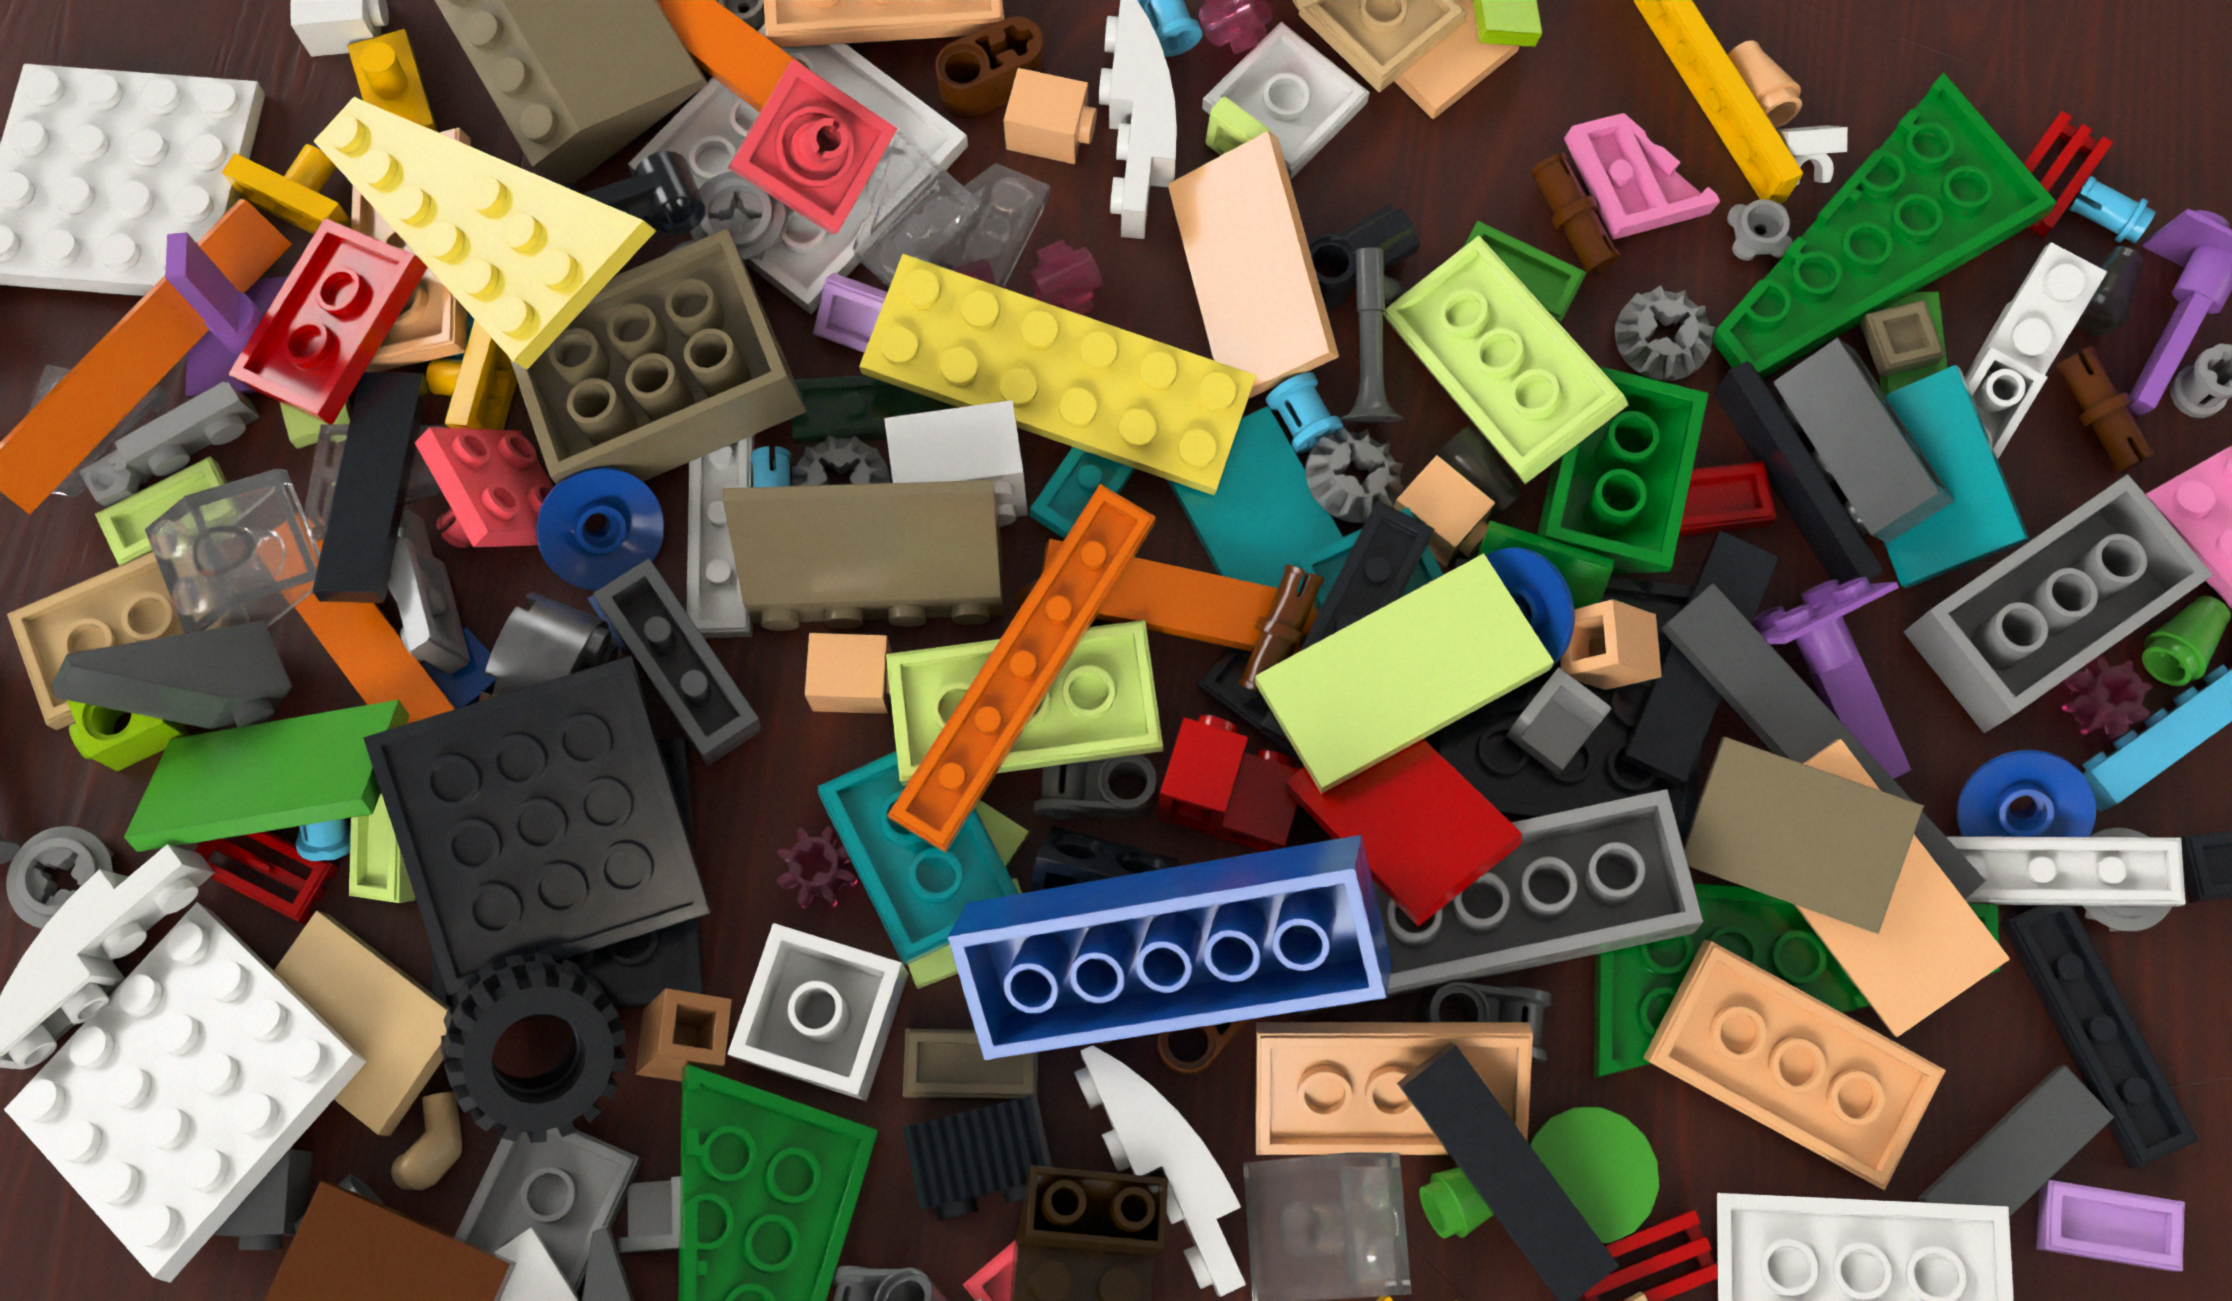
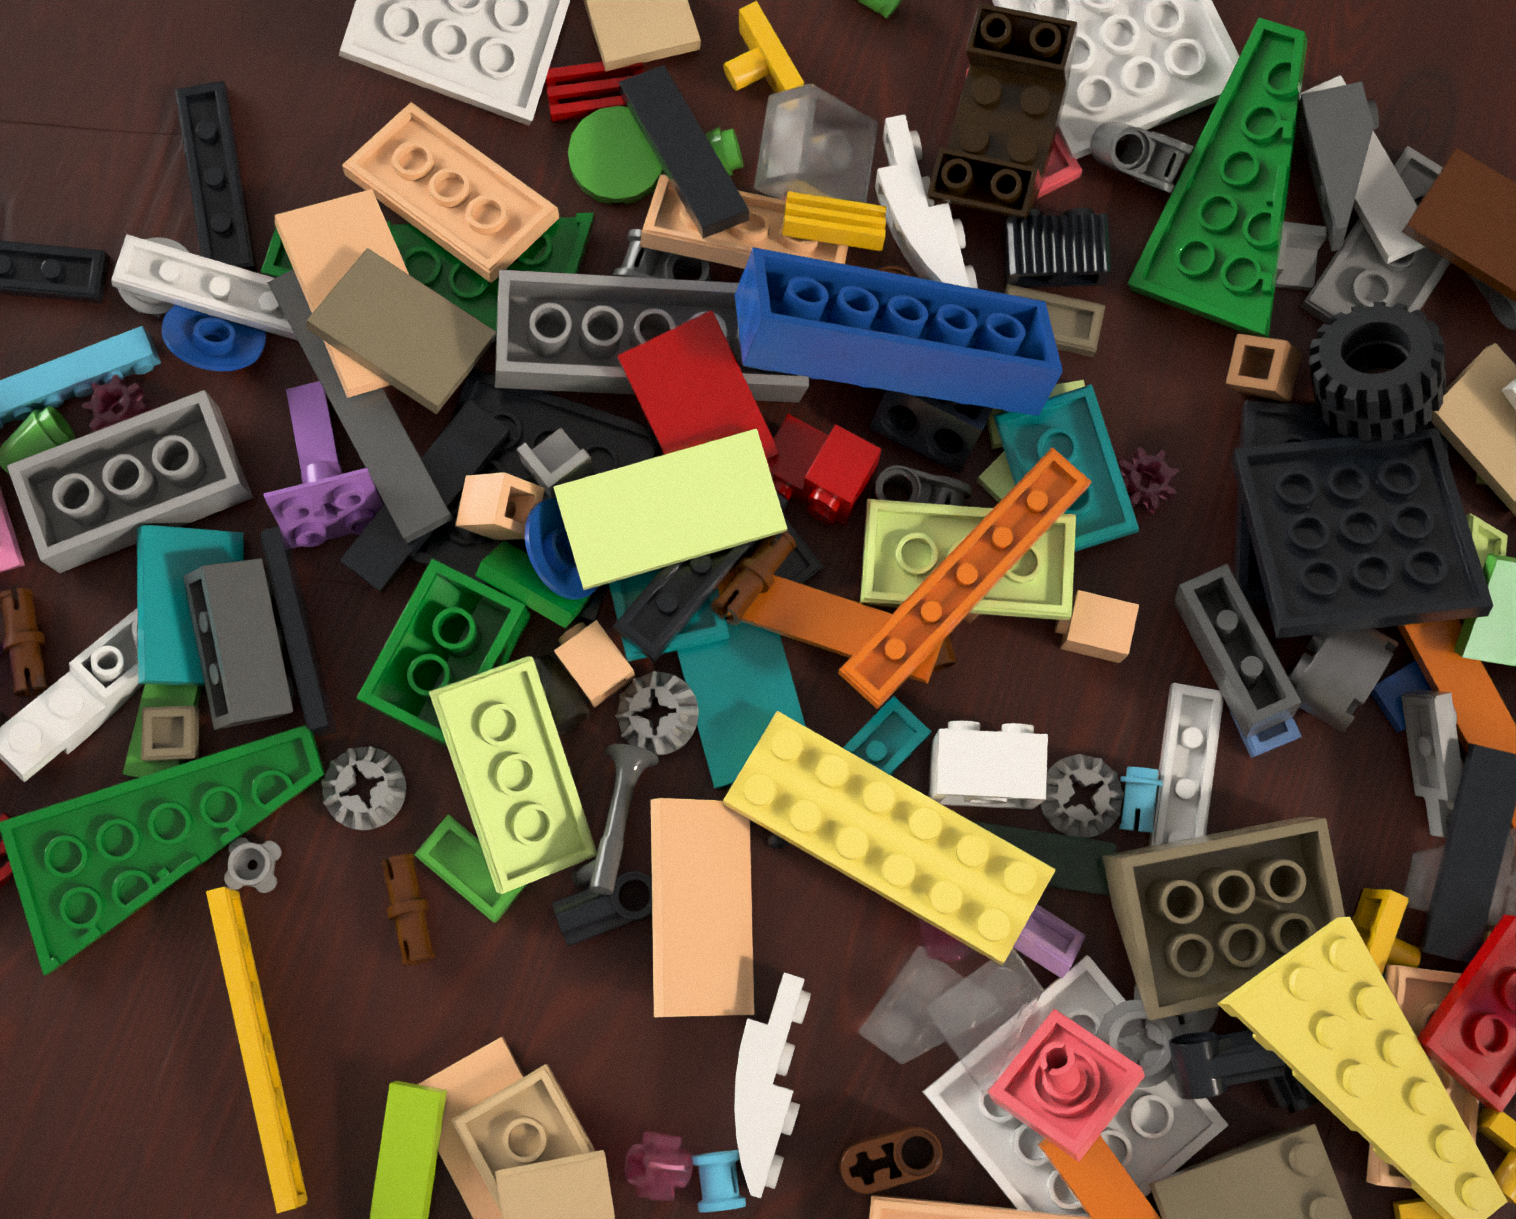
camera: 170 degrees left, 5 degrees up
(436, 1149) = (1456, 332): tan arm -> none
(489, 484) = (1372, 831): coral plate -> none
(596, 558) = (1286, 785): blue dish -> none
(819, 1012) = (1161, 365): white brick -> none
(867, 553) = (1073, 704): dark tan slope -> none
(1048, 116) = (846, 1098): light nougat brick -> none
(1066, 277) = (863, 933): clear pink gear -> none
(1231, 127) = (684, 1042): yellowish green tile -> none
(1282, 1132) = (834, 221): none -> yellow tile
(1292, 94) = (630, 1080): white tile -> none
(1303, 411) = (686, 772): medium azure bush -> none
(1633, 177) = (347, 933): bright pink wing -> none
(1728, 499) = (355, 634): red tile -> none
(1767, 82) = (205, 1000): light nougat cone -> none
(1813, 144) = (186, 932): white tile -> none
(2024, 1146) = (307, 107): dark grey tile -> none
(2111, 1225) = (258, 51): lavender tile -> none

